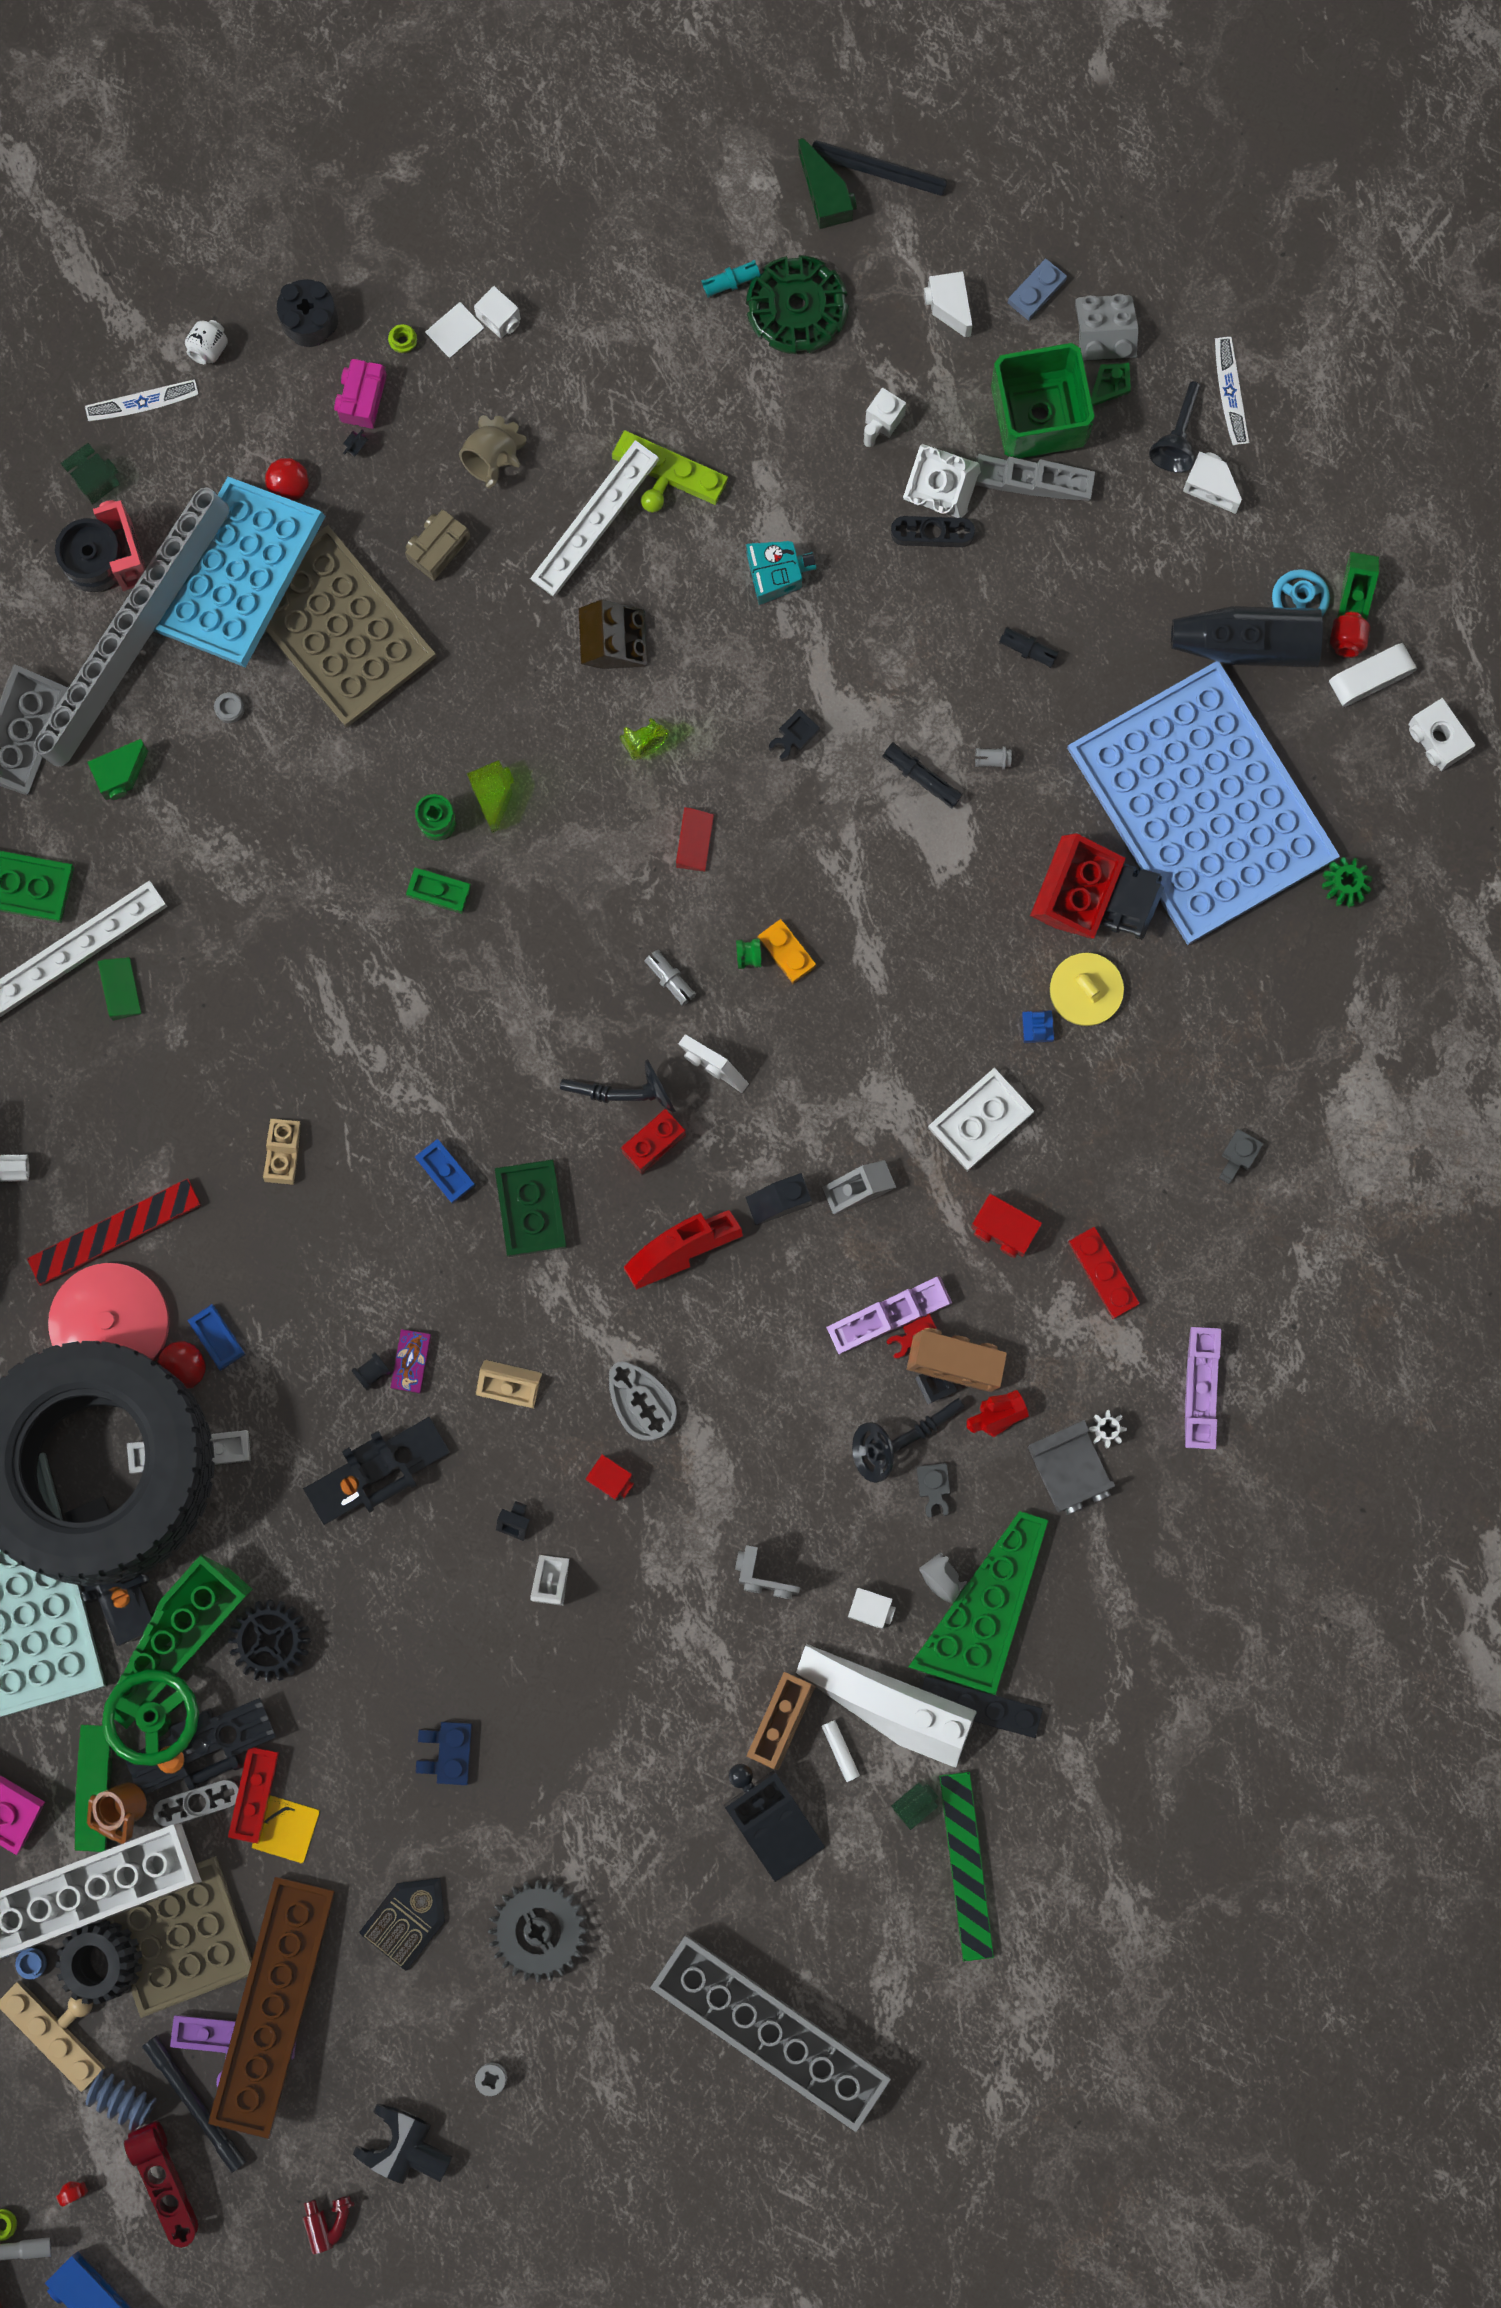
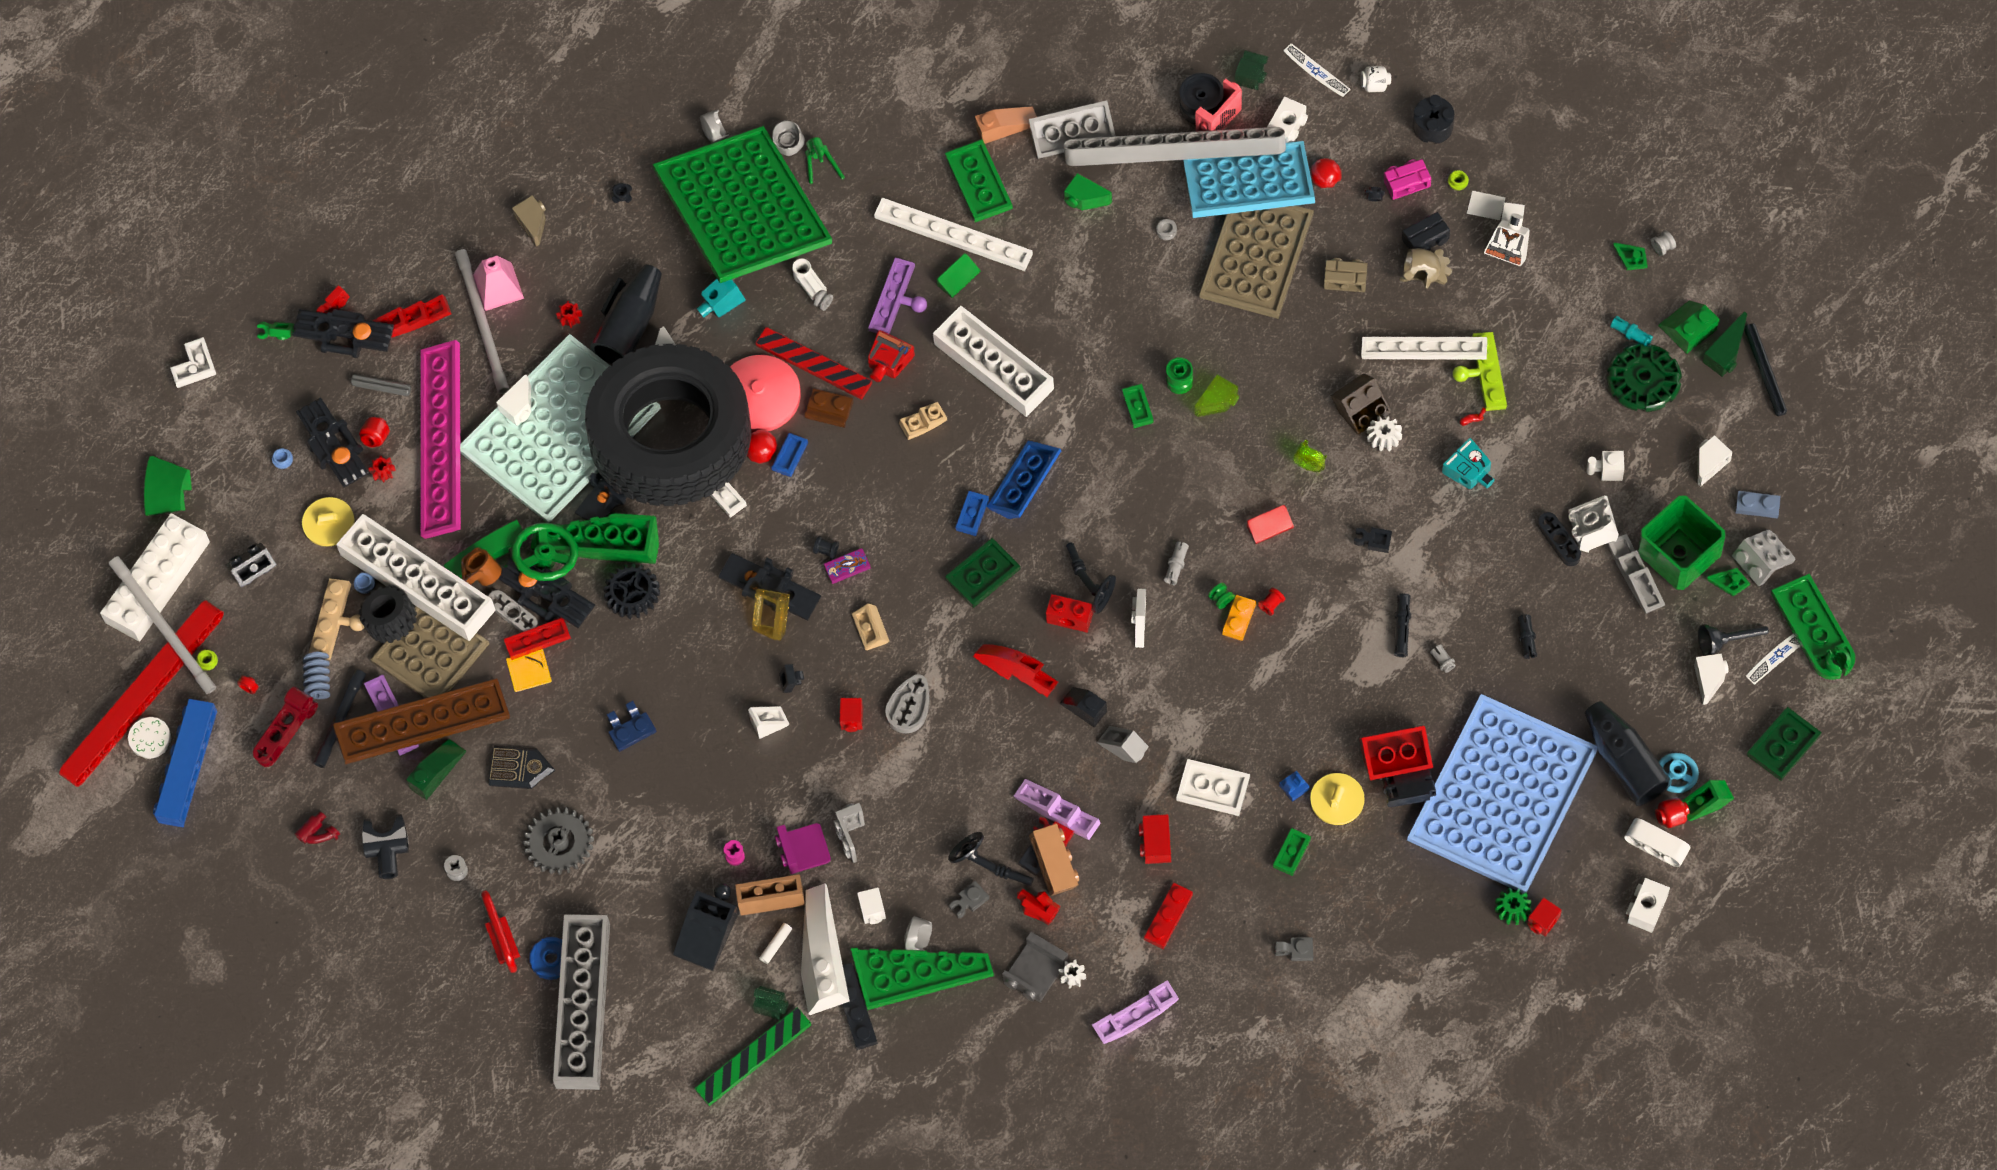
camera: 60 degrees right, 15 degrees down
(39, 1167) = (823, 300): none -> light grey bush
(94, 1083) = (893, 297): none -> medium lavender plate
(170, 1138) = (889, 356): none -> red torso
(179, 465) = (1289, 112): none -> white brick
(186, 1251) = (829, 408): none -> reddish brown plate
(265, 1019) = (993, 361): none -> white brick
(342, 2024) = (434, 769): none -> dark green slope
(408, 1475) = (782, 604): none -> clear yellow tile
(443, 1083) = (1023, 479): none -> blue slope
(448, 419) = (1426, 233): none -> black brick
(526, 333) = (1509, 241): none -> torso
(620, 2078) = (500, 935): none -> red bar
(635, 214) = (1631, 256): none -> green piece
(645, 168) = (1663, 243): none -> light grey wheel
(669, 625) = (1384, 426): none -> white gear
(677, 2050) = (538, 954): none -> blue tile
(695, 1719) = (729, 849): none -> dark pink bush
(714, 525) = (1472, 418): none -> red piece
(742, 1642) = (802, 847): none -> magenta bracket
(766, 210) = (1690, 325): none -> green slope
(793, 901) = (1271, 601): none -> red bush
(1119, 1082) = (1292, 852): none -> green plate
(1230, 330) = (1815, 627): none -> green plate
(1345, 459) = (1784, 743): none -> dark green plate
(1382, 857) = (1544, 917): none -> red brick

